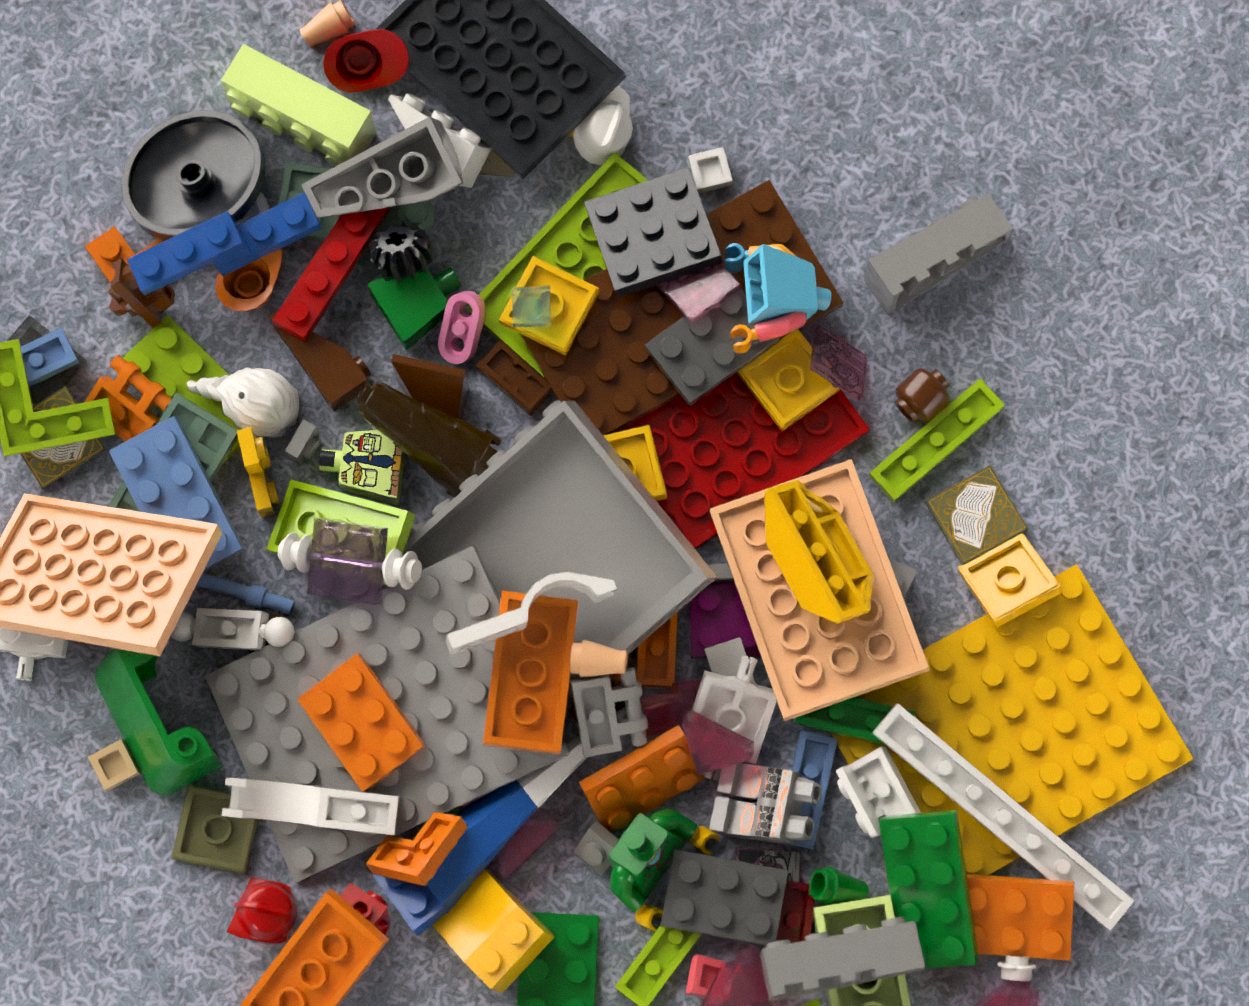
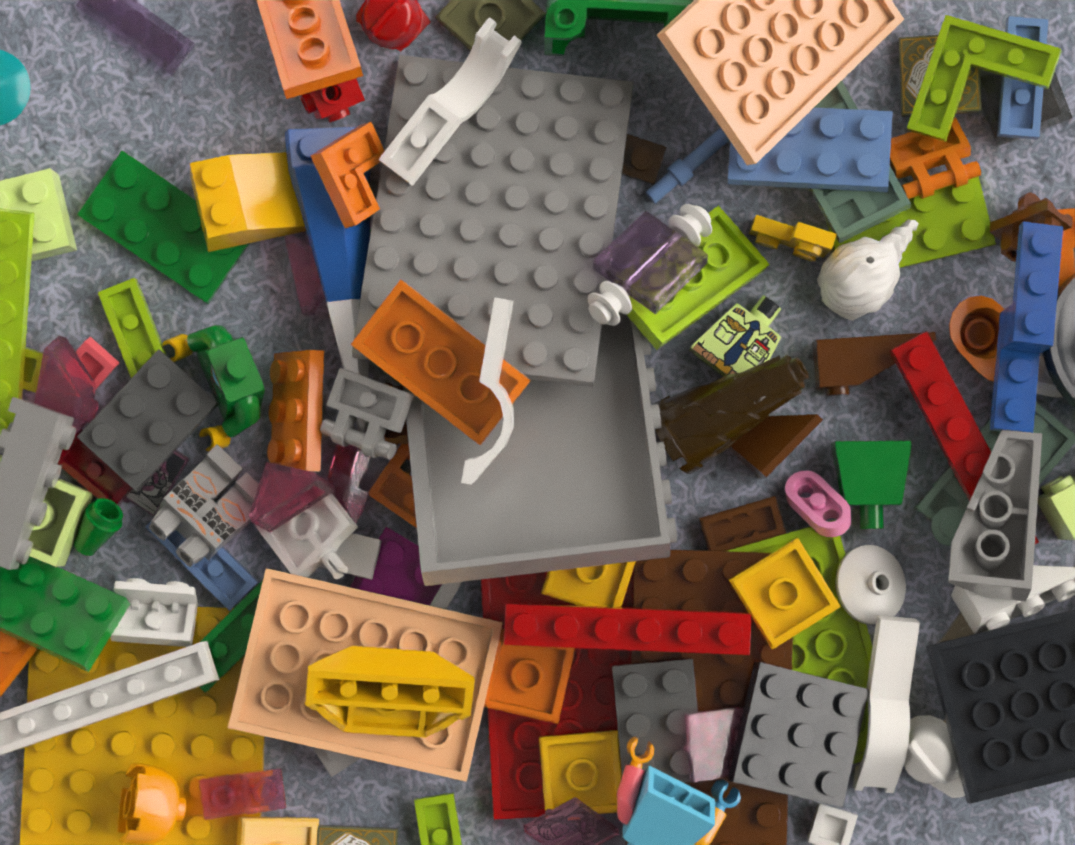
camera: 120 degrees right, 10 degrees up
(233, 629) = (657, 132): white plate -> none
(304, 443) = (795, 295): light grey plate -> none
(361, 722) = (497, 190): orange plate -> none
(401, 252) = (921, 488): black gear -> none
(500, 251) = (857, 584): none -> white dish
(531, 306) = (789, 573): clear light blue plate -> none
(584, 182) = (888, 703): none -> white piece
(596, 659) = (414, 429): light nougat cone -> none
(596, 847) = (264, 338): light grey plate -> none
(653, 407) = (627, 628): none -> red brick
(737, 463) = (529, 680): none -> orange plate
(976, 636) = (242, 793): none -> clear pink slope
(1034, 701) = (149, 805): none -> light orange cylinder

